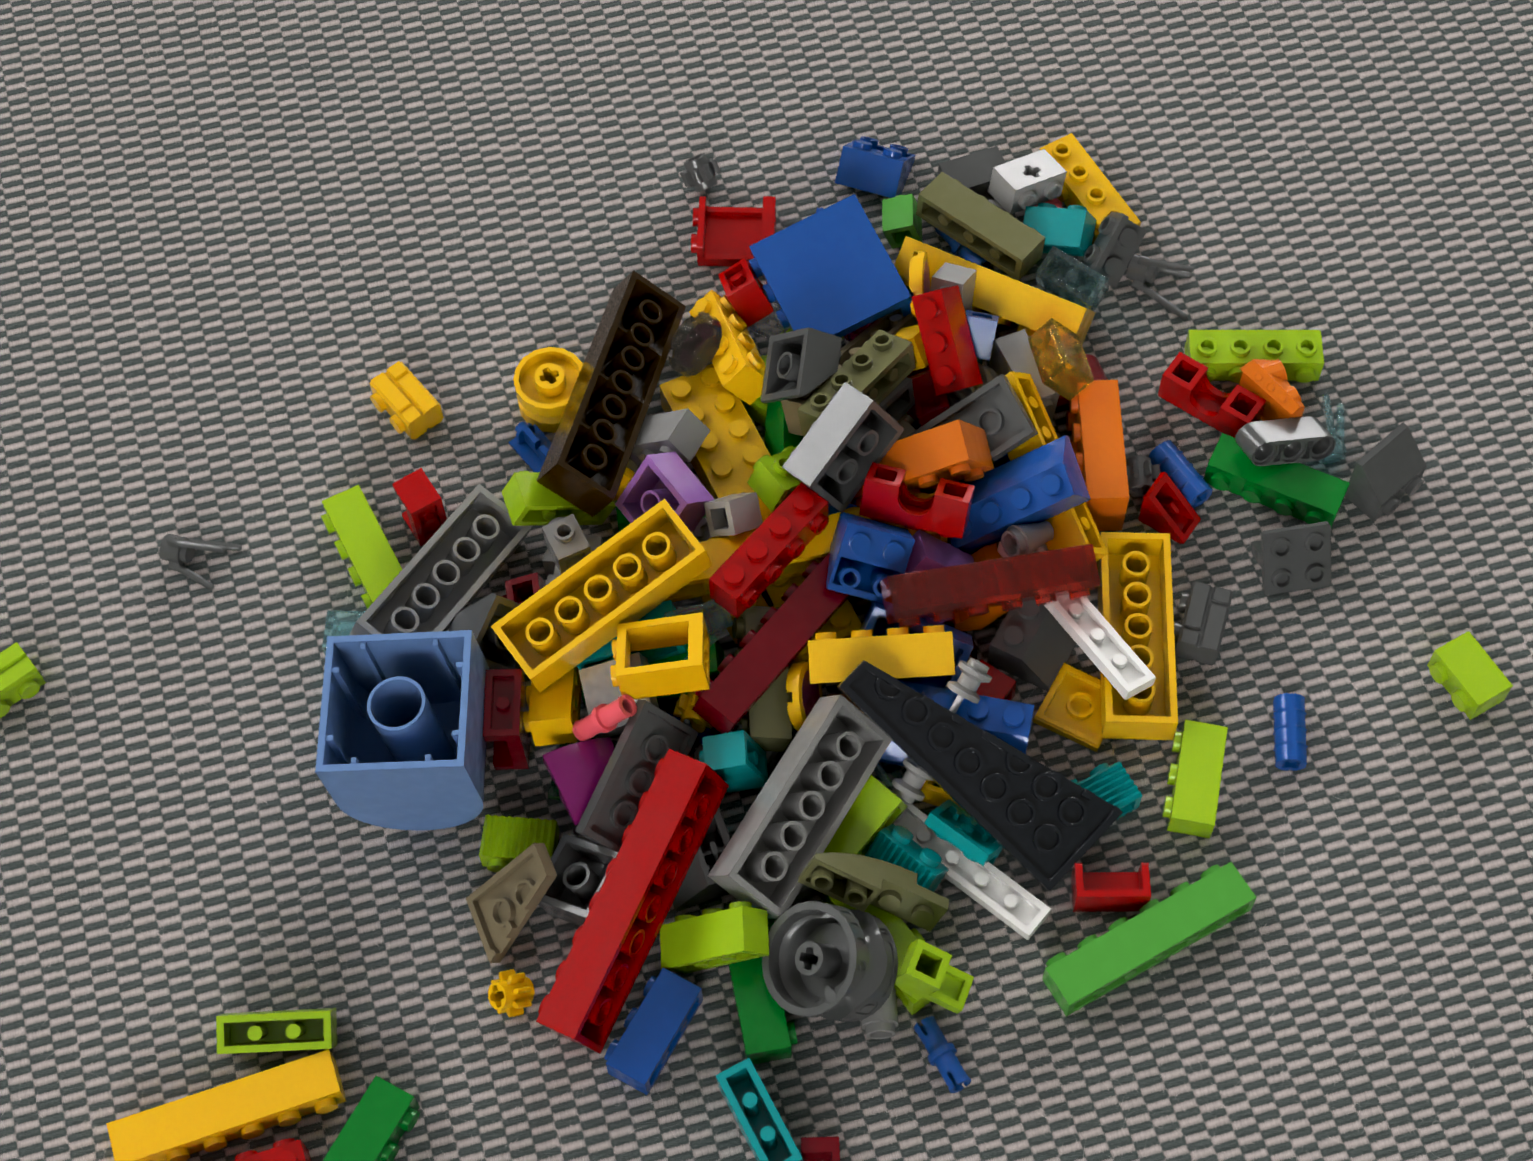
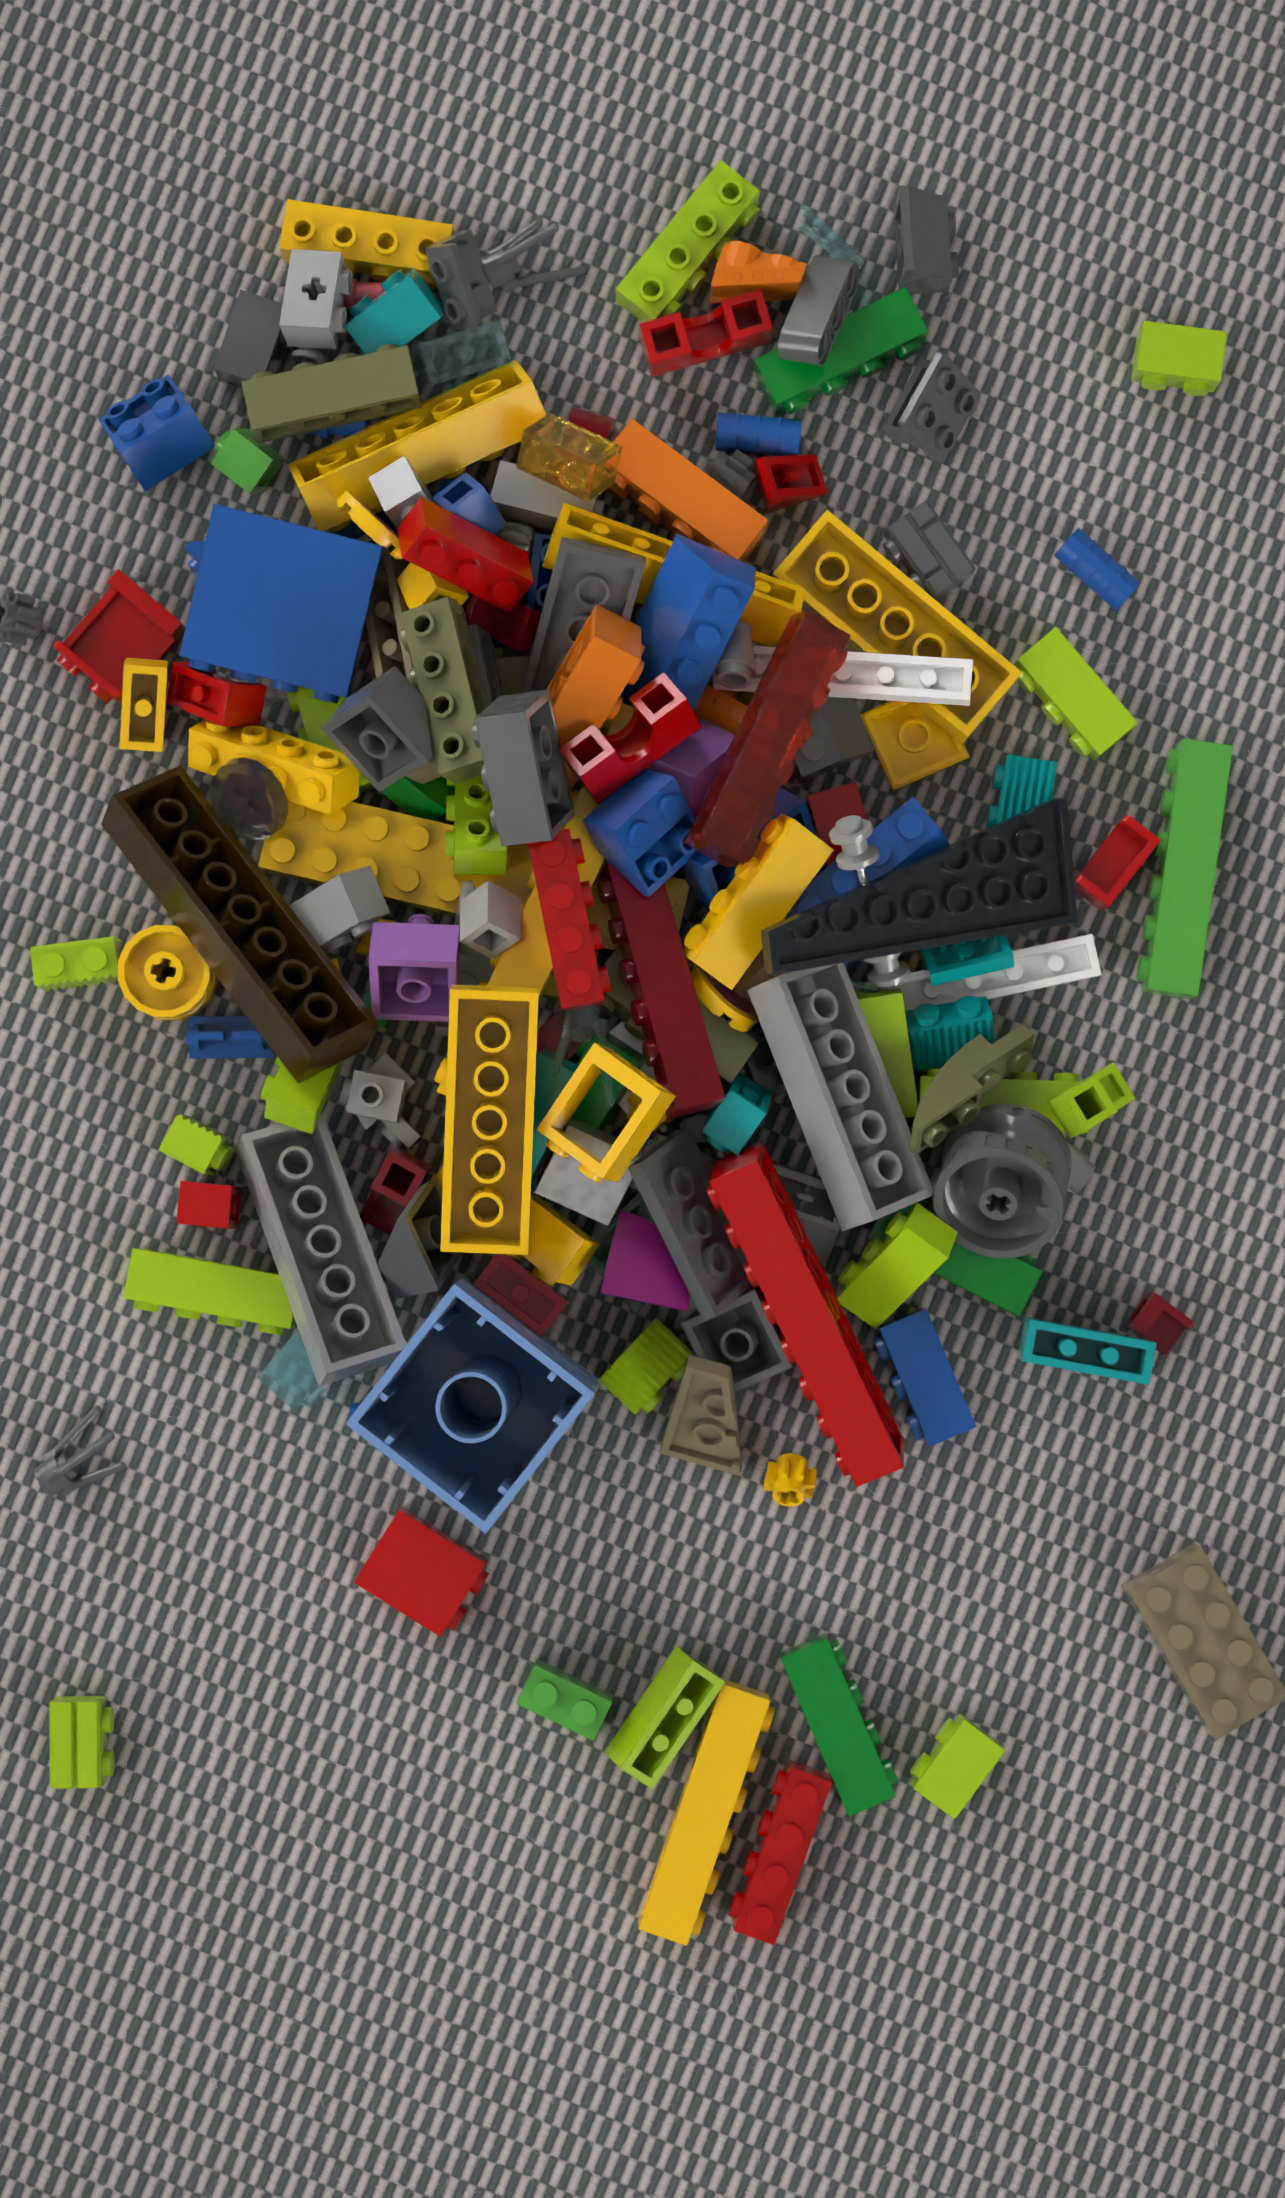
camera: 55 degrees left, 25 degrees up
(243, 958) = (565, 1699): none -> bright green brick
(269, 806) = (423, 1572): none -> red brick
(405, 400) = (59, 1127): yellow brick -> none
(453, 471) = (197, 1145): none -> lime brick
(512, 334) = (76, 963): none -> lime brick
(604, 718) = (615, 1210): coral pin -> none
(702, 262) = (144, 704): none -> yellow brick
(942, 1054) = (1144, 1139): blue pin -> none

